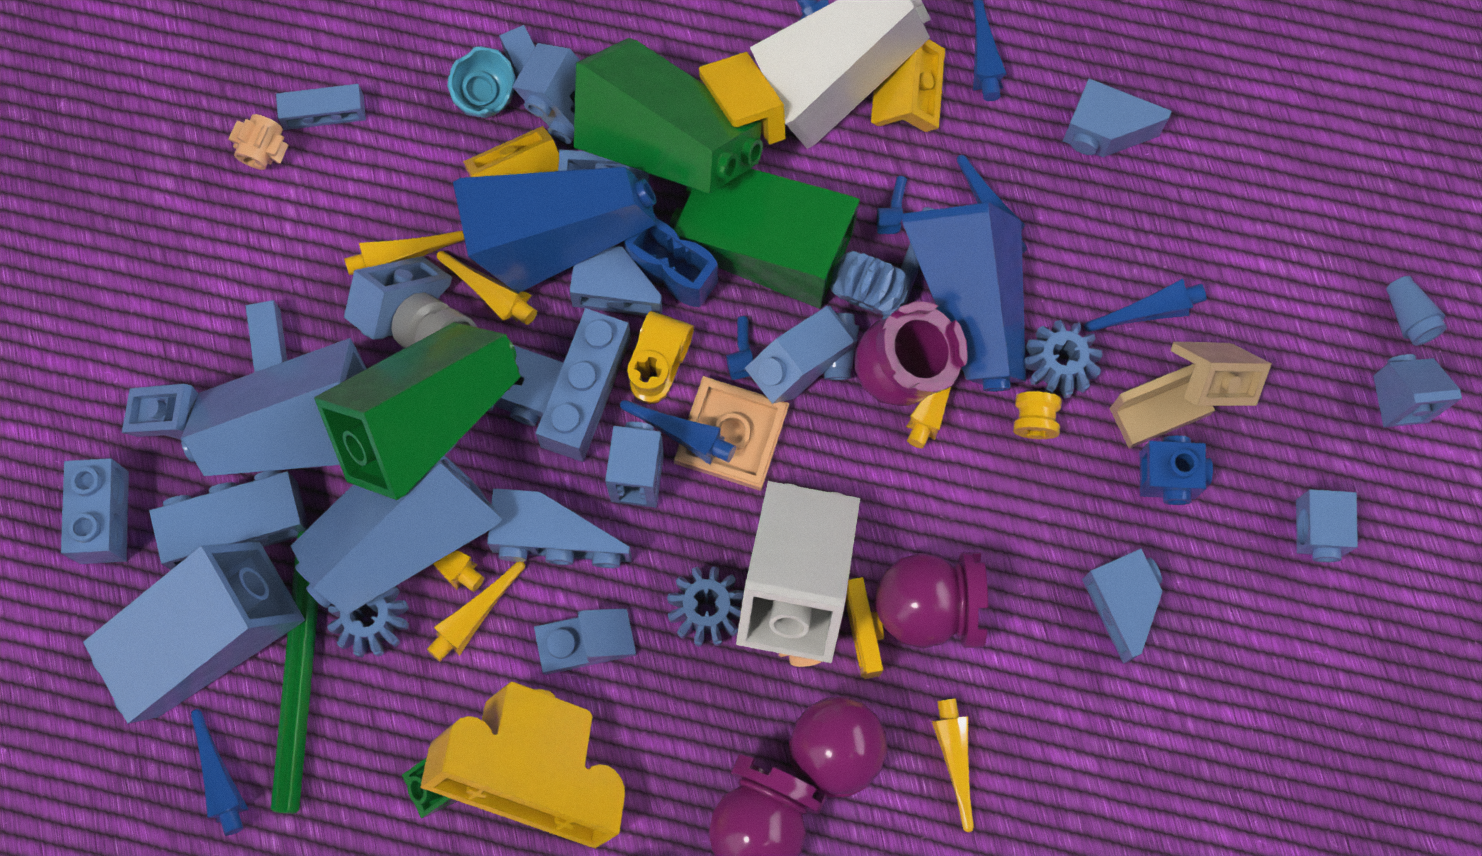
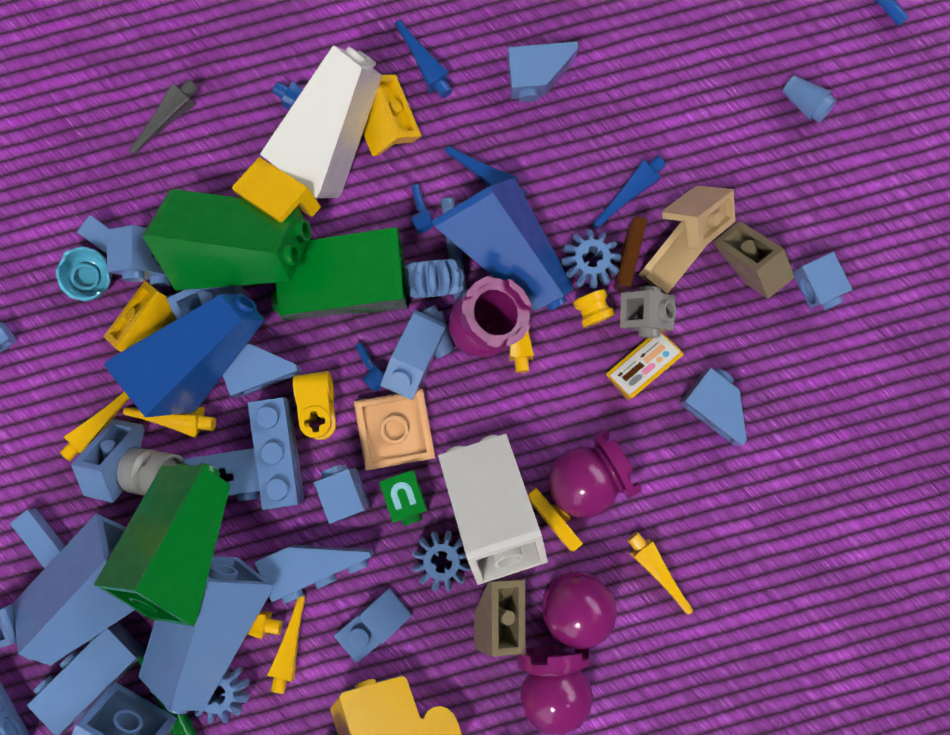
camera: 25 degrees left, 10 degrees up
(681, 265) = (297, 334): blue brick -> none
(698, 438) = (376, 449): blue piece -> none
(702, 511) = (404, 498): none -> green brick
(742, 702) = (501, 619): none -> dark tan slope
(1063, 511) = (643, 365): none -> slope
(1098, 449) = (647, 311): none -> light grey brick
(1111, 375) = (630, 253): none -> reddish brown tile
(1174, 470) = (697, 307): blue brick -> none
(1258, 458) = (755, 259): none -> dark tan slope
(1413, 391) = (836, 156): medium blue slope -> none

